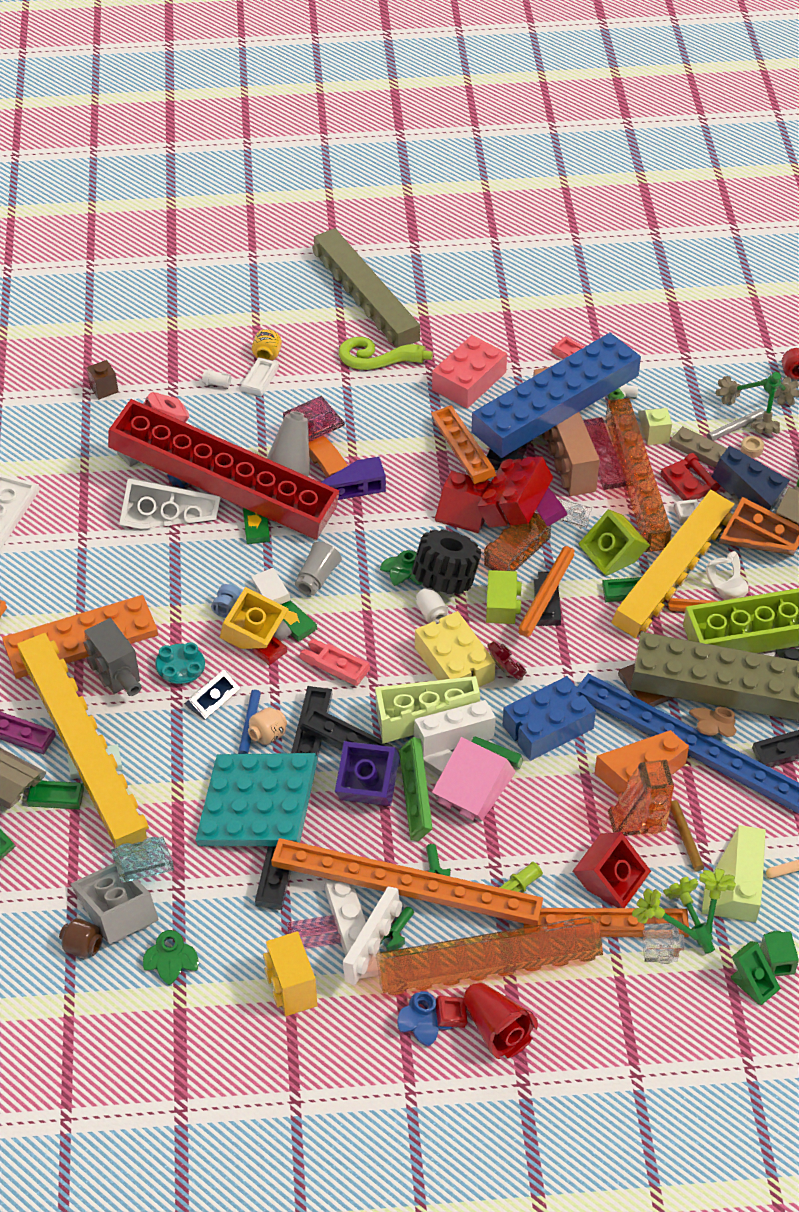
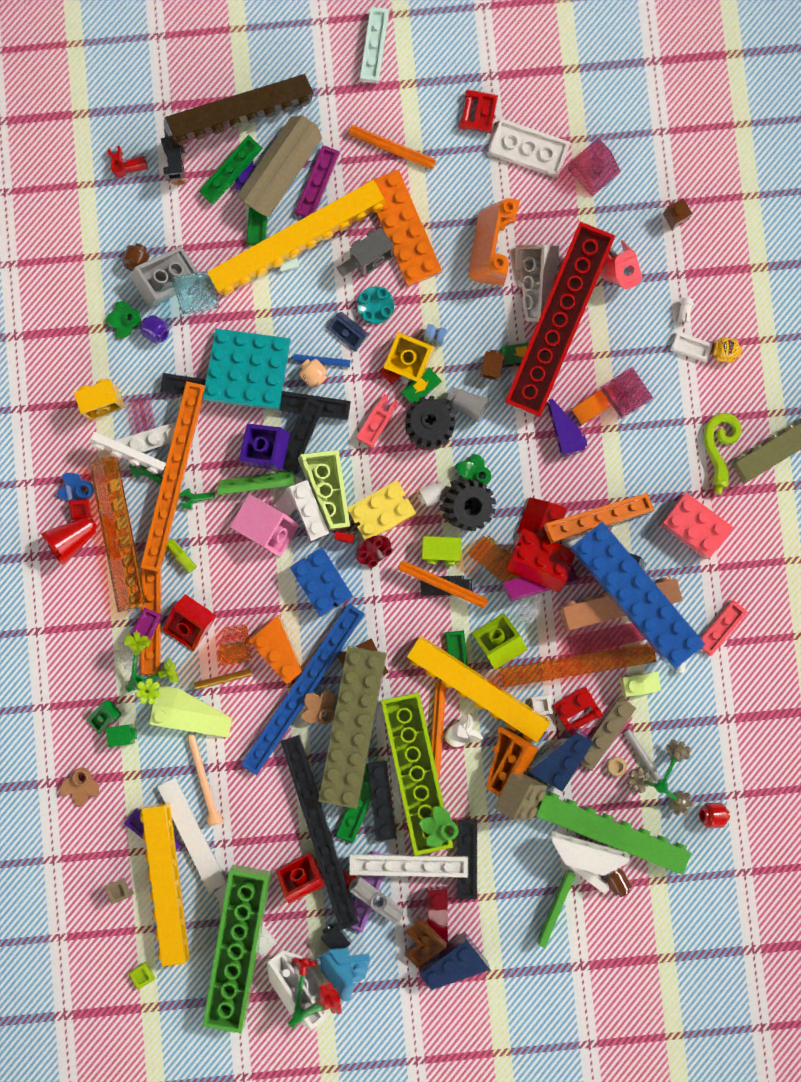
camera: 90 degrees right, 35 degrees up
(31, 451) = (594, 167): none -> clear pink slope
(116, 538) = (484, 263): none -> orange windscreen
(189, 912) = (154, 329): none -> dark purple head
(270, 546) = (492, 365): none -> reddish brown brick
(271, 586) = (449, 368): white tile -> none
(292, 444) = (583, 374): light grey cone -> none
(344, 600) = (429, 435): none -> black wheel
(490, 691) = (343, 537): none -> red tile
(514, 758) = (289, 542): green tile -> none
(619, 916) = (147, 623): none -> magenta tile

